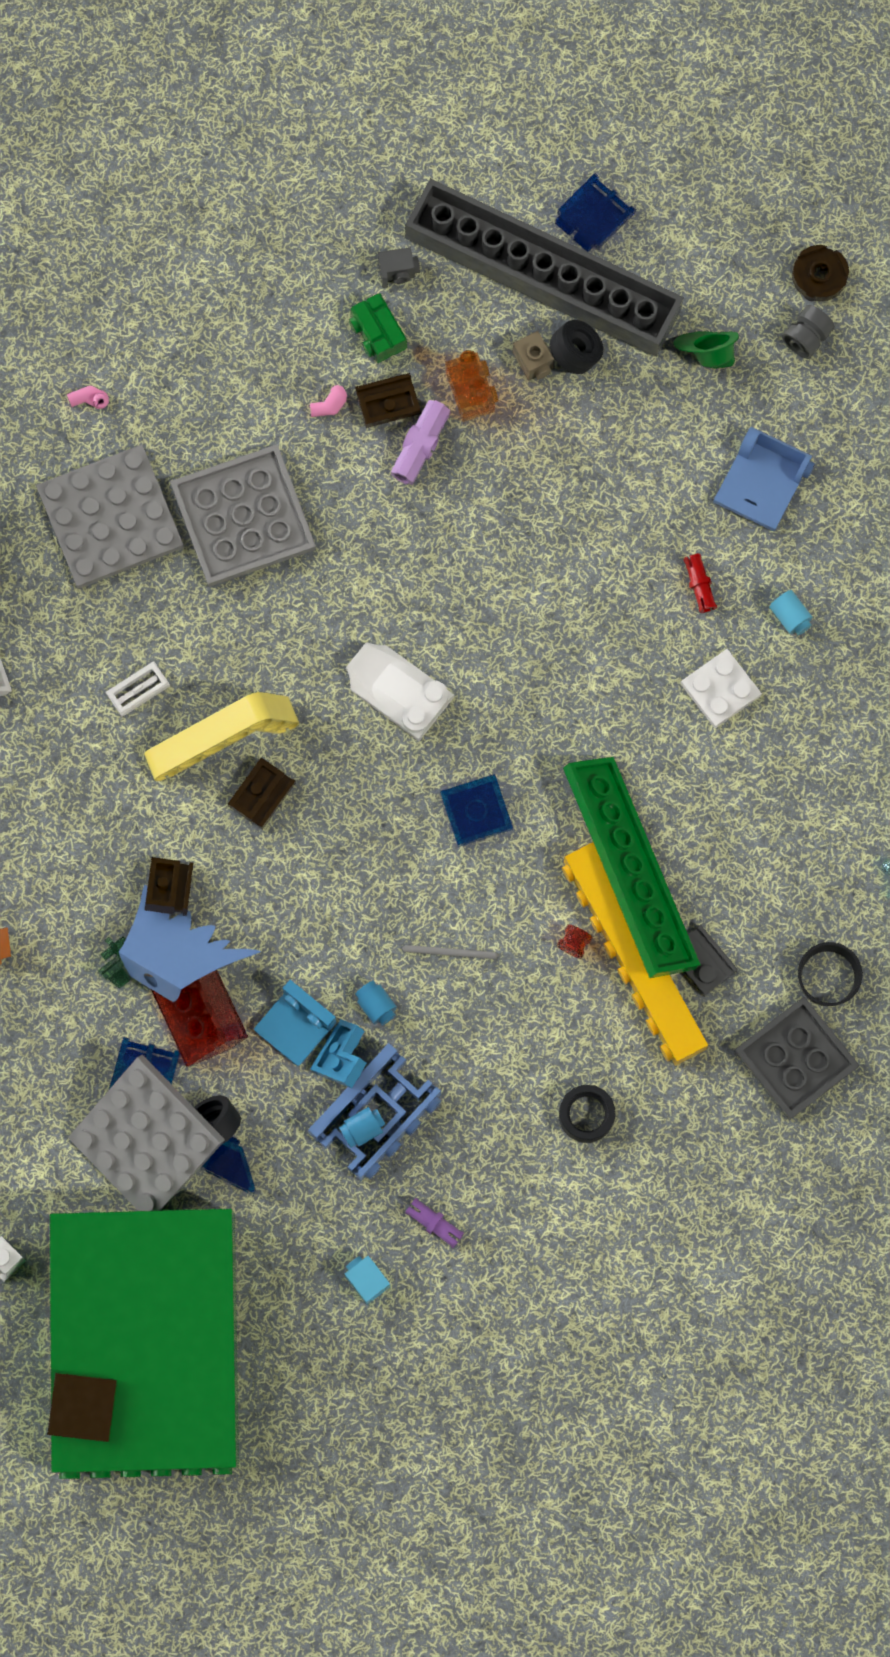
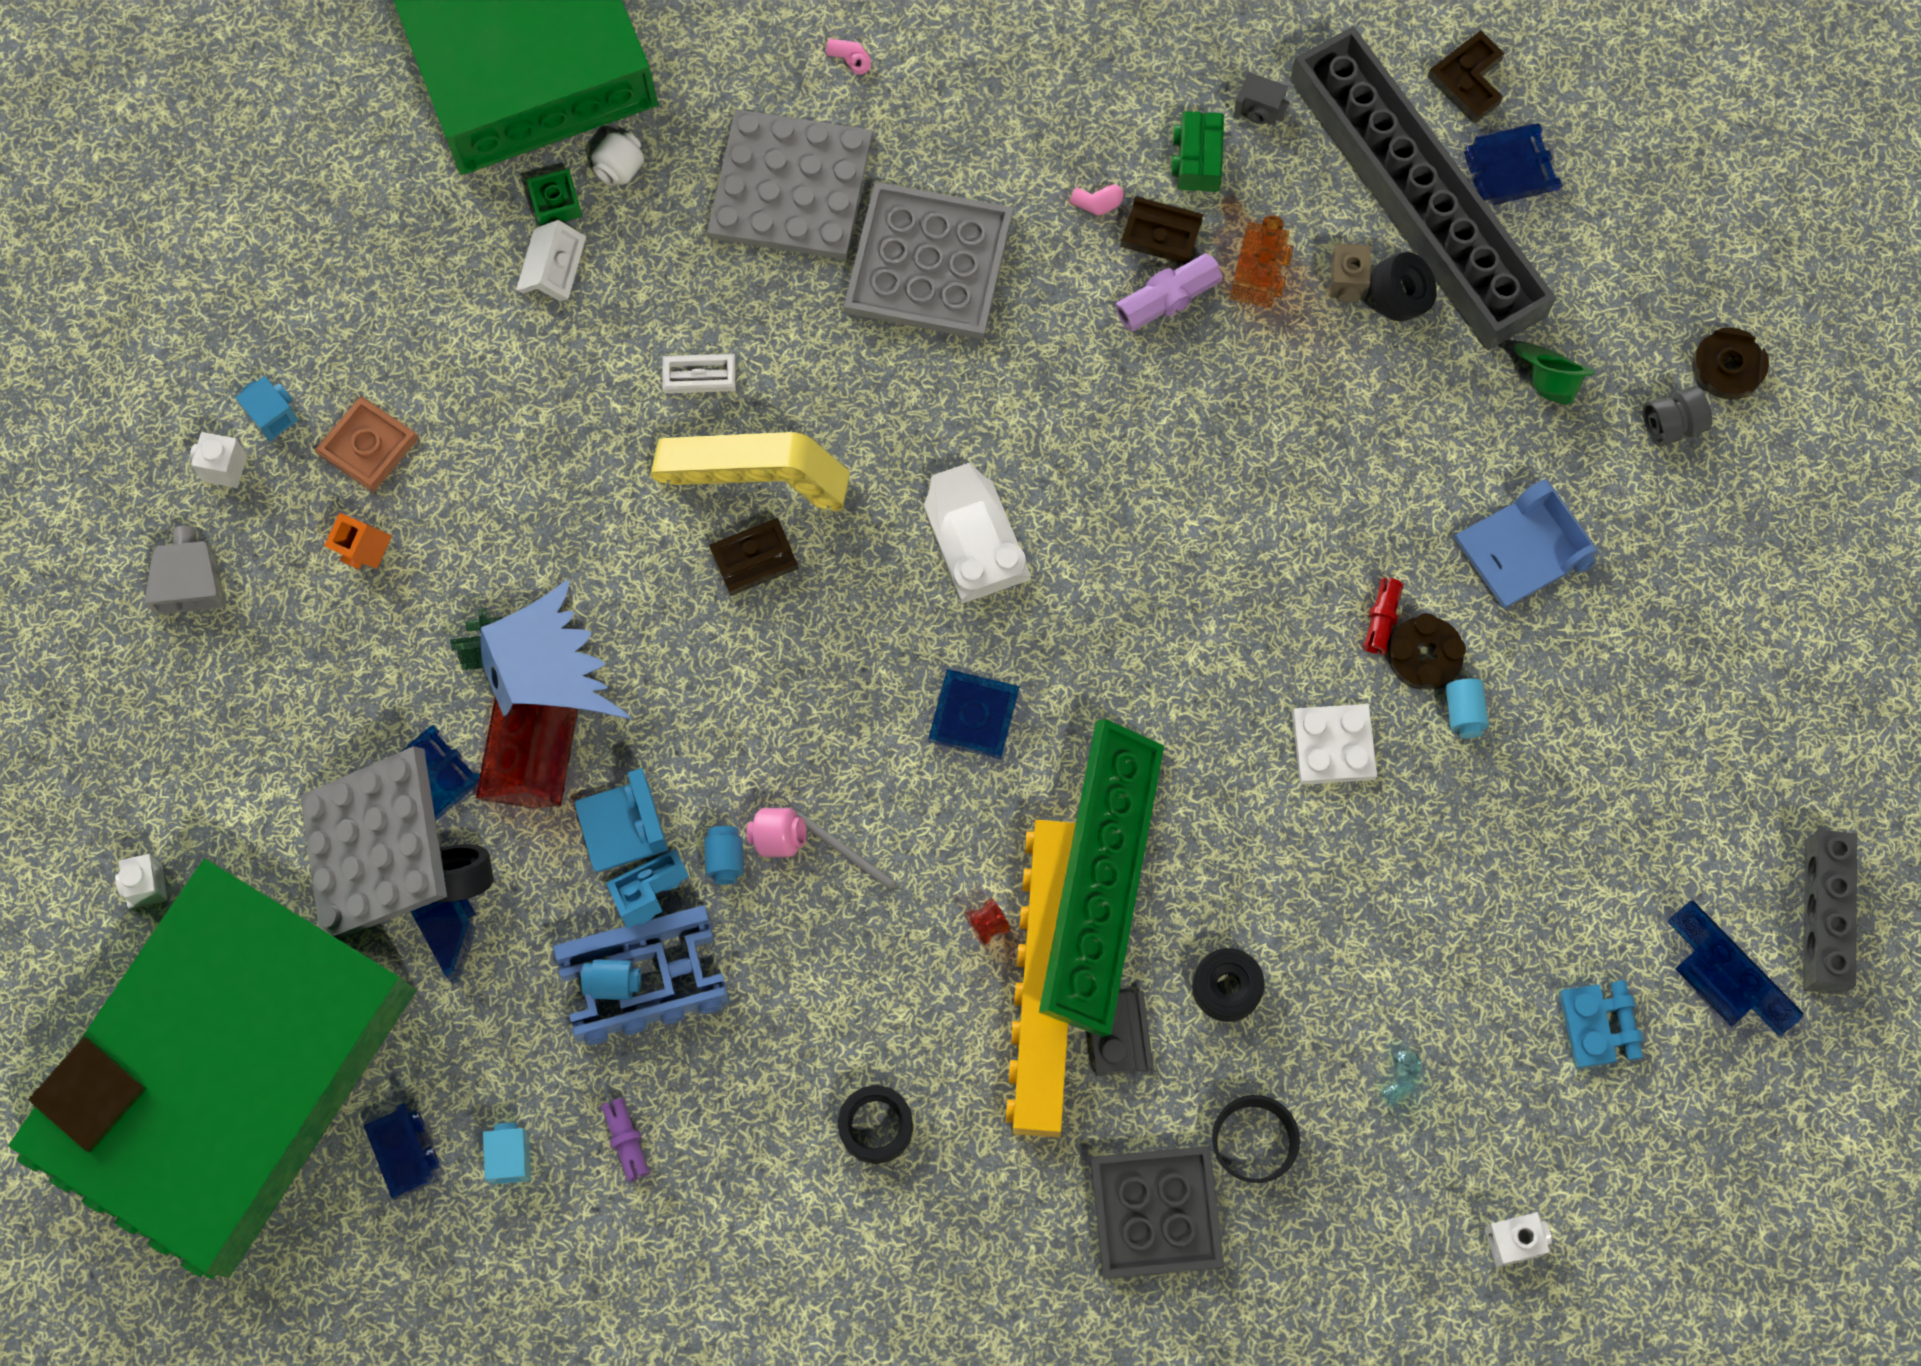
camera: 35 degrees right, 5 degrees down
(168, 886) = (586, 593): dark brown plate -> none
(298, 1319) = (402, 1151): none -> clear blue bracket
(401, 967) = (777, 832): none -> bright pink head
(520, 168) = (1462, 76): none -> dark brown plate
(728, 599) = (1426, 673): none -> dark brown plate
(755, 871) = (1228, 962): none -> black tyre

